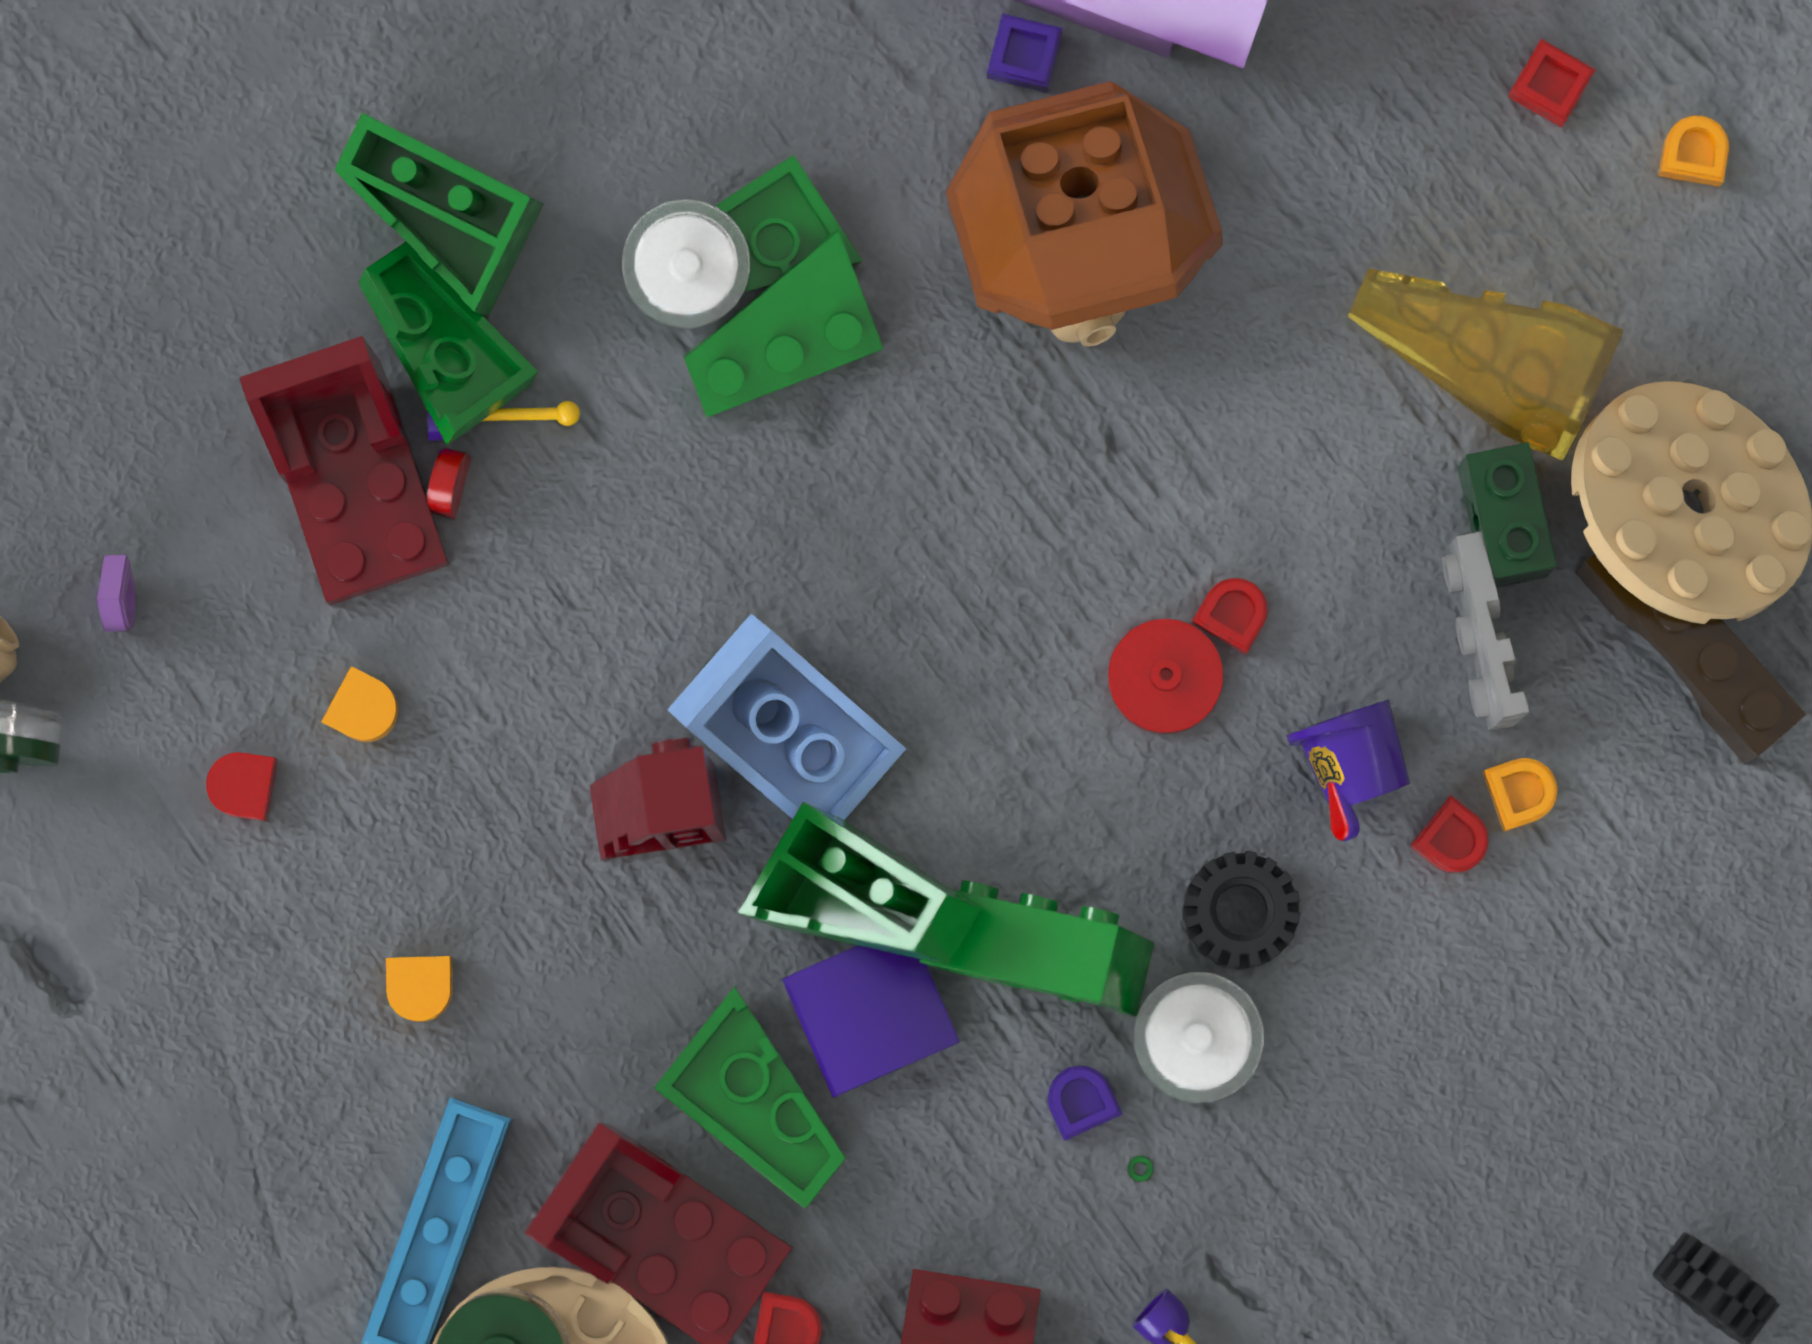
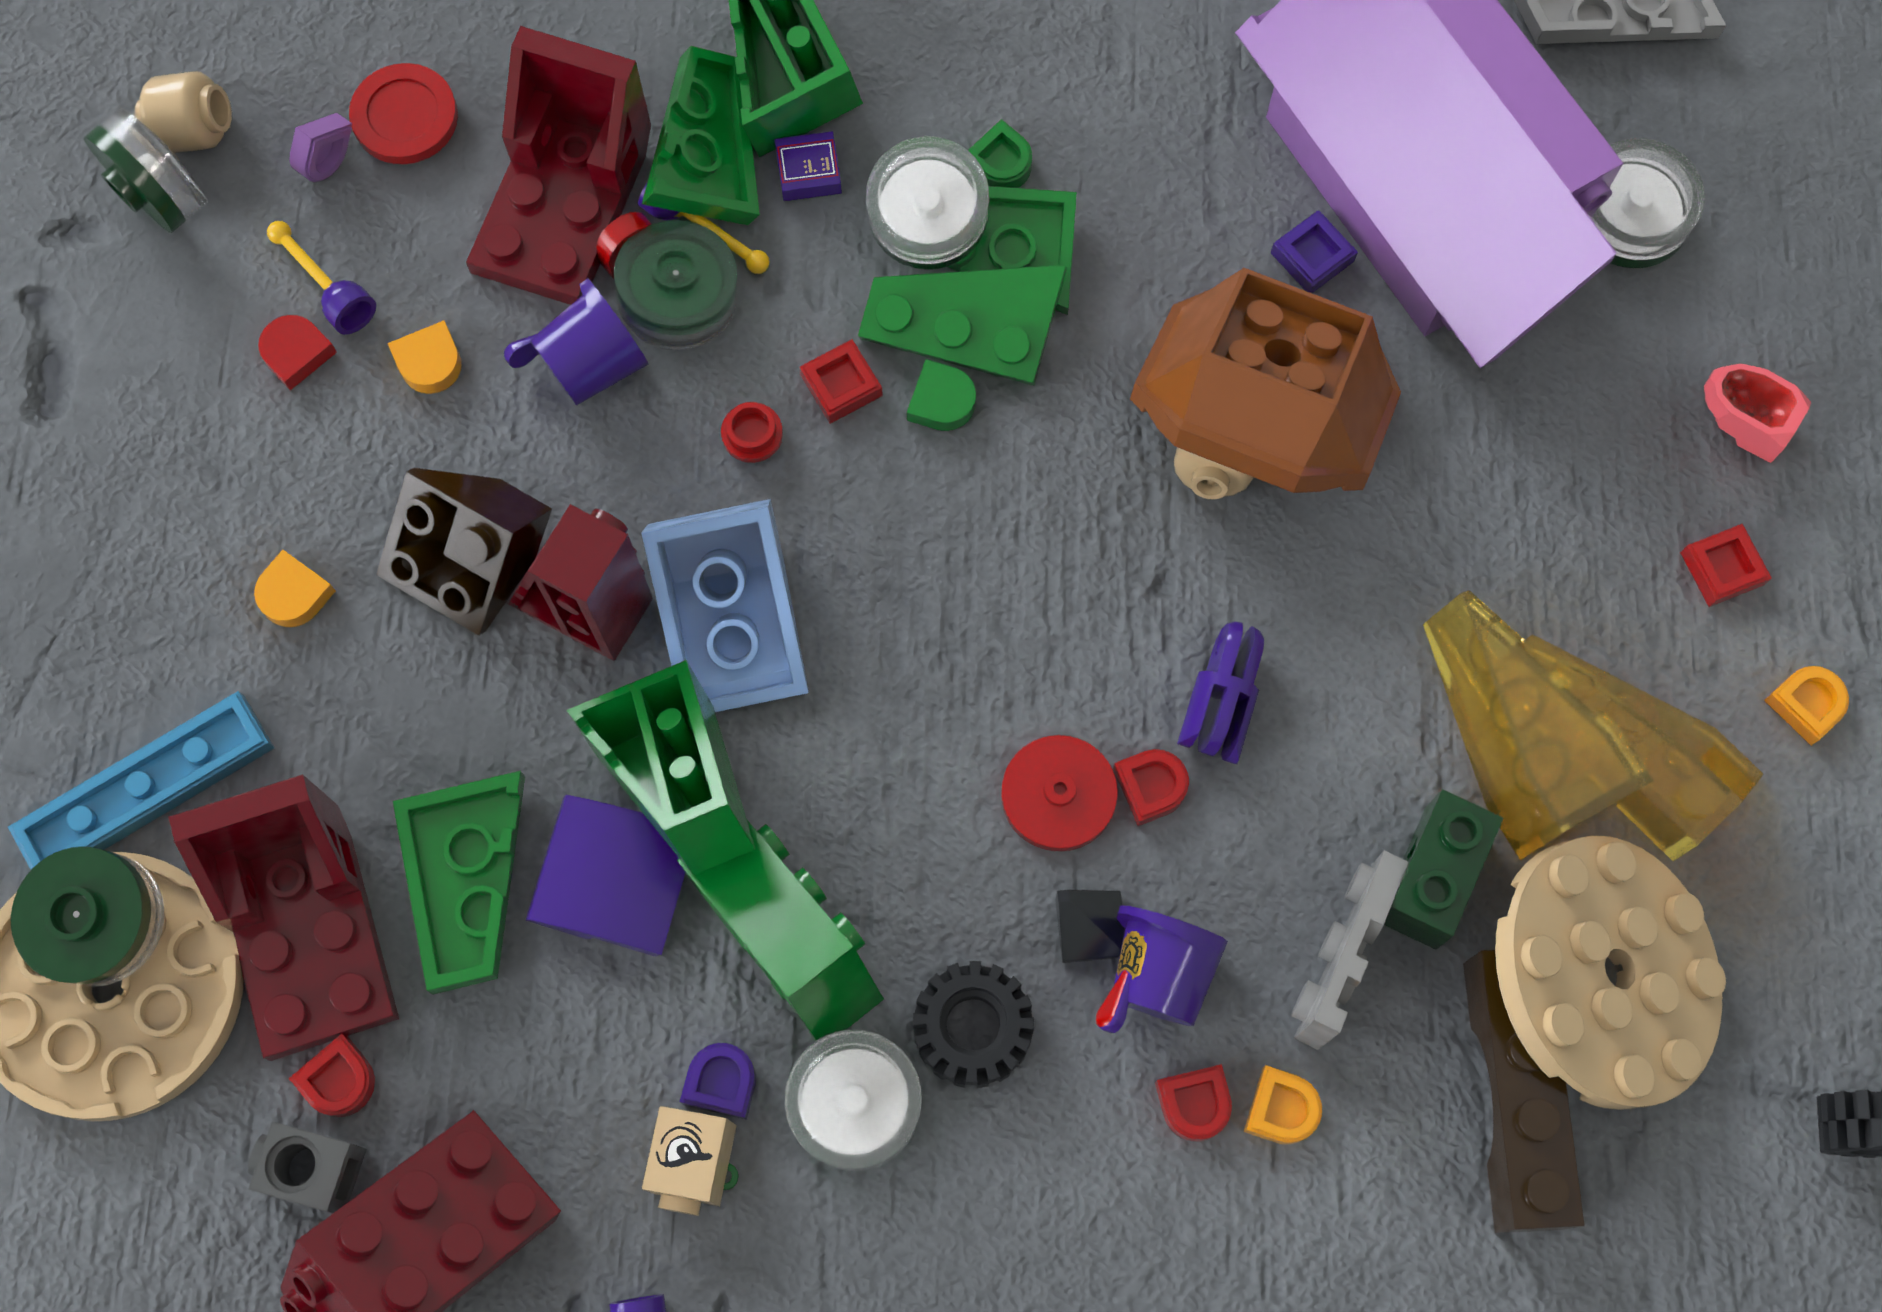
camera: 30 degrees right, 10 degrees down
(156, 510) = (403, 113): none -> red piece
(253, 713) = (344, 302): none -> dark purple hinge
(493, 603) = (582, 347): none -> dark purple hat
(521, 488) = (676, 285): none -> clear green piece
(531, 842) = (461, 543): none -> dark brown slope
(541, 295) = (808, 166): none -> dark purple tile
(685, 566) = (751, 432): none -> red plate
(698, 165) = (1003, 156): none -> green tile
(721, 465) = (841, 381): none -> red tile
(817, 416) = (942, 397): none -> green tile
(1108, 1178) = (688, 1159): none -> tan brick
(1237, 498) = (1225, 694): none -> dark purple arm
(1269, 764) = (1089, 924): none -> black slope
(1625, 279) = (1693, 764): none -> clear yellow wedge

